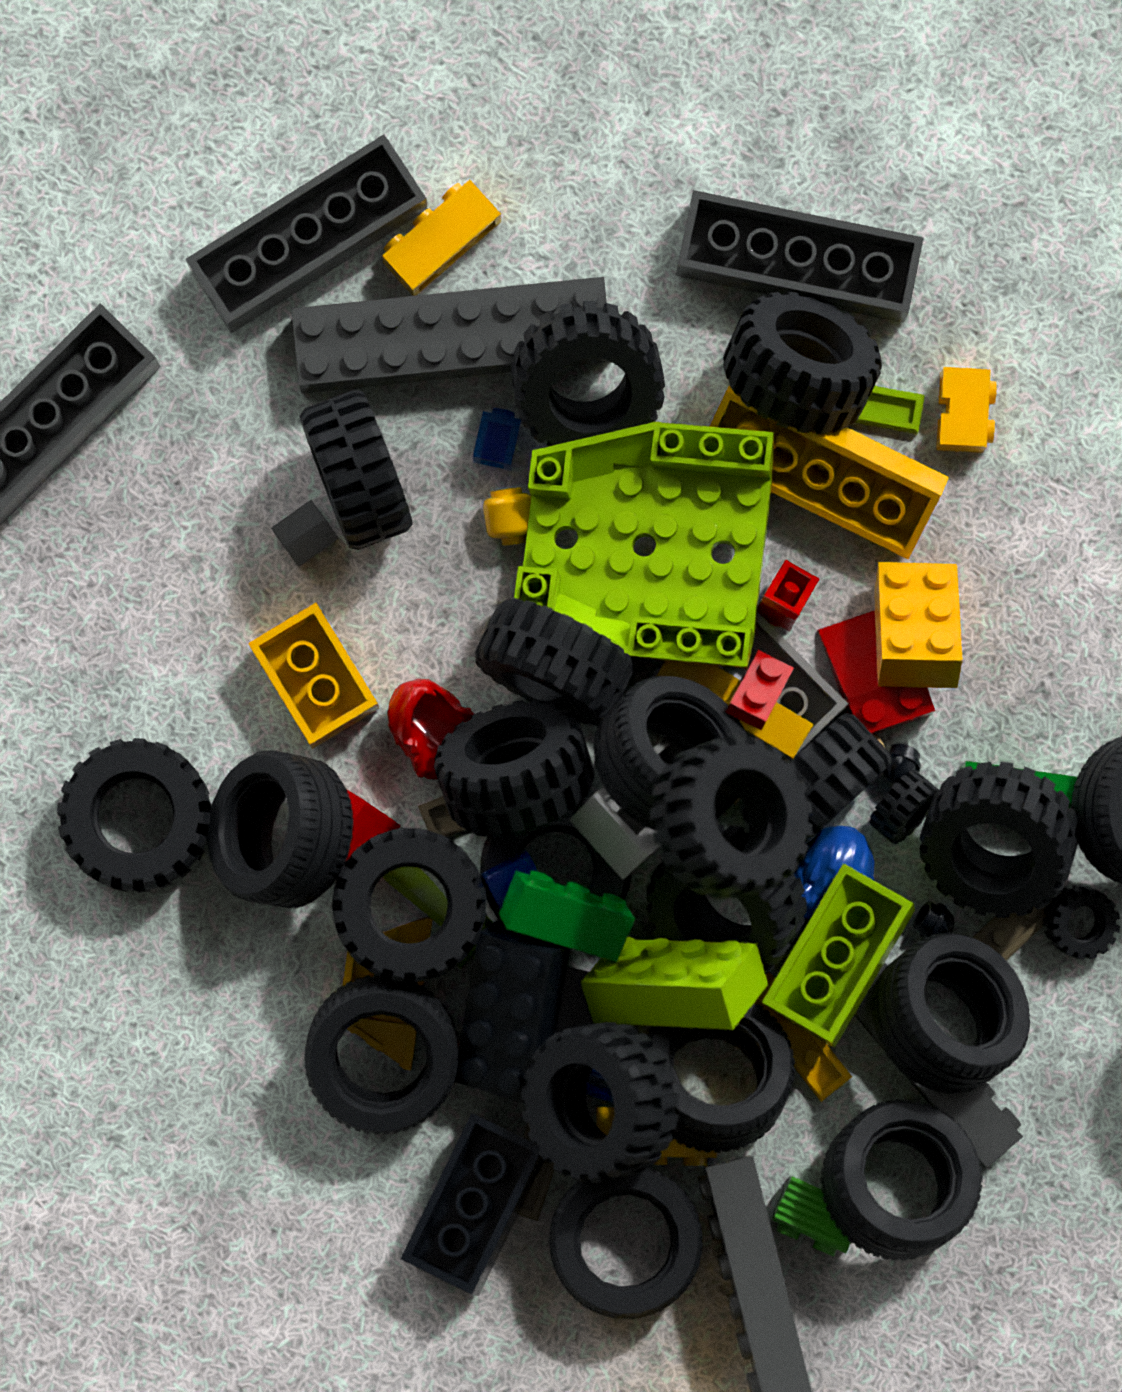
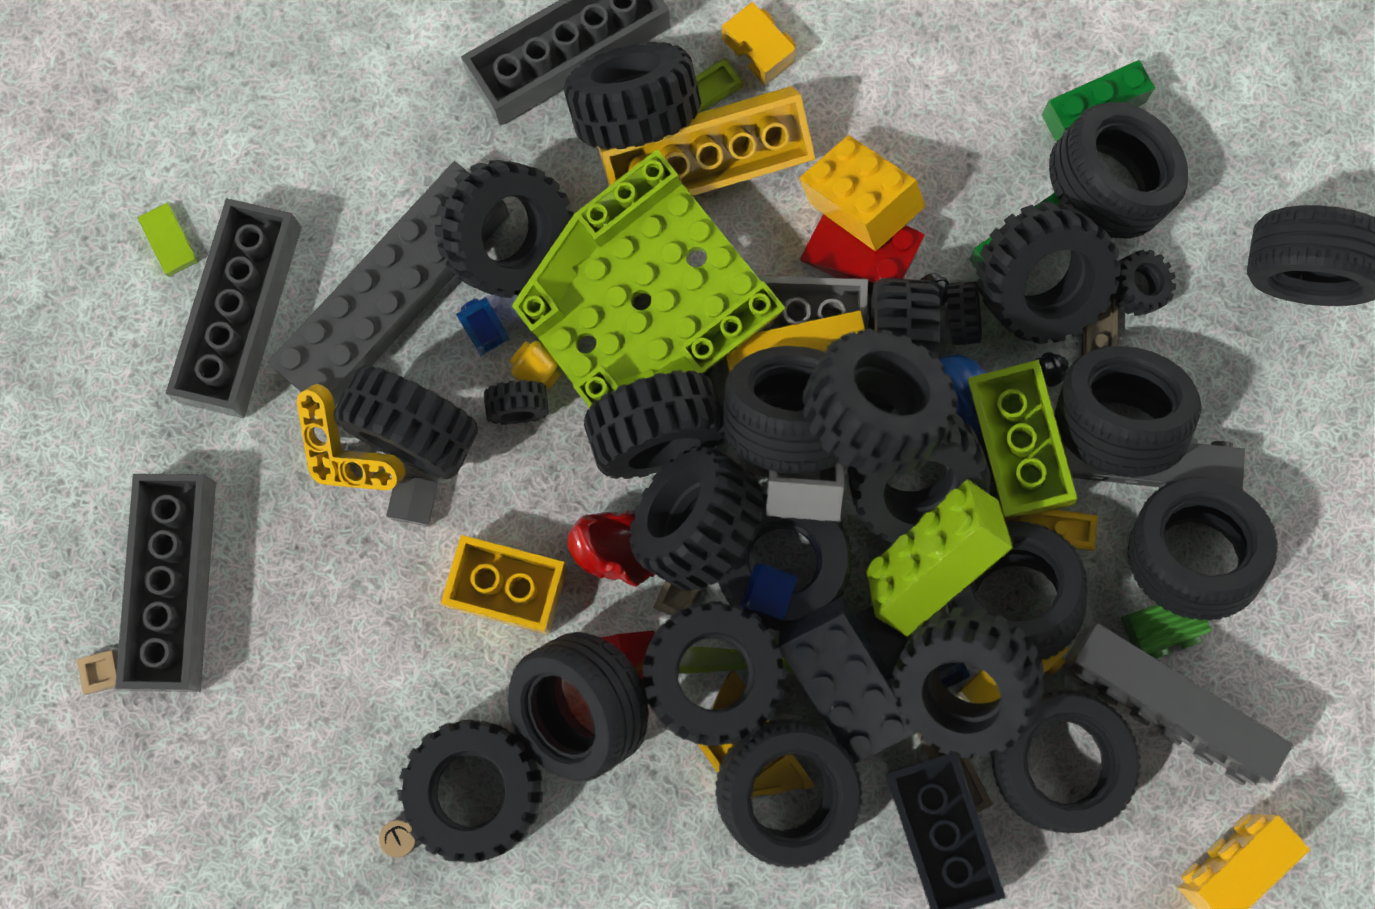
camera: 35 degrees left, 5 degrees down
(42, 797) = (396, 839): none -> tan tile
(275, 442) = (336, 458): none -> yellow beam
(306, 116) = (167, 239): none -> lime tile
(440, 237) = (325, 233): yellow brick -> none
(463, 532) = (516, 402): none -> black tyre
(566, 915) = (824, 579): green brick -> none
(759, 690) = (806, 319): plate -> none
(787, 595) = (763, 250): red slope -> none

